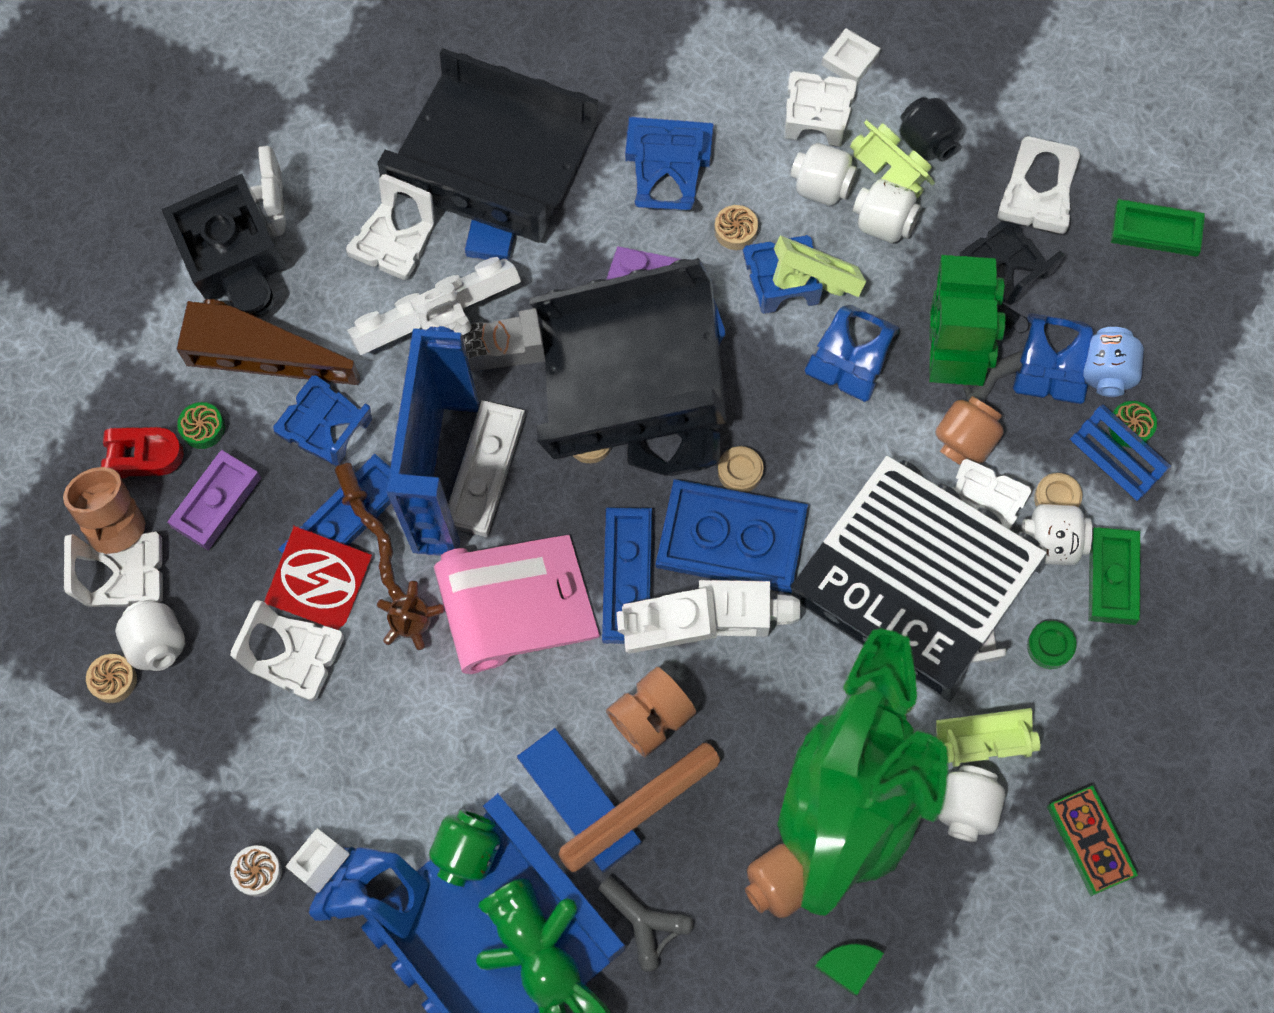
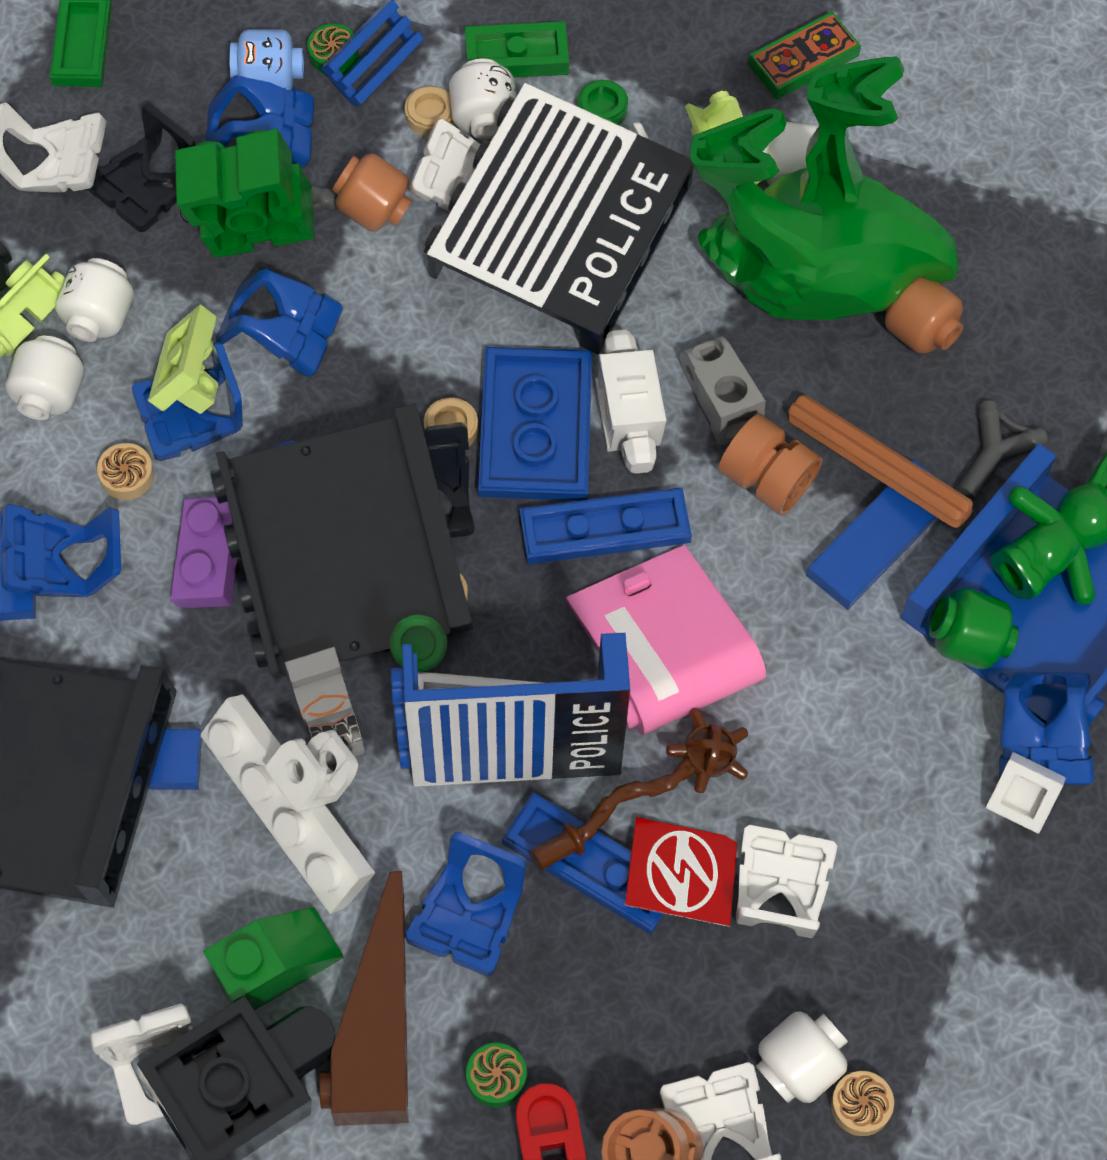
camera: 105 degrees left, 5 degrees down
(214, 500) = (601, 1025): medium lavender plate -> none
(256, 871) = (1052, 867): tile -> none
(317, 283) = (272, 956): none -> green slope
(382, 243) = (199, 886): white piece -> none
(541, 409) = (426, 638): none -> green tile
(667, 620) = (666, 454): white plate -> none
(736, 688) = (722, 387): none -> light grey leg
(850, 965) = (988, 251): green tile -> none

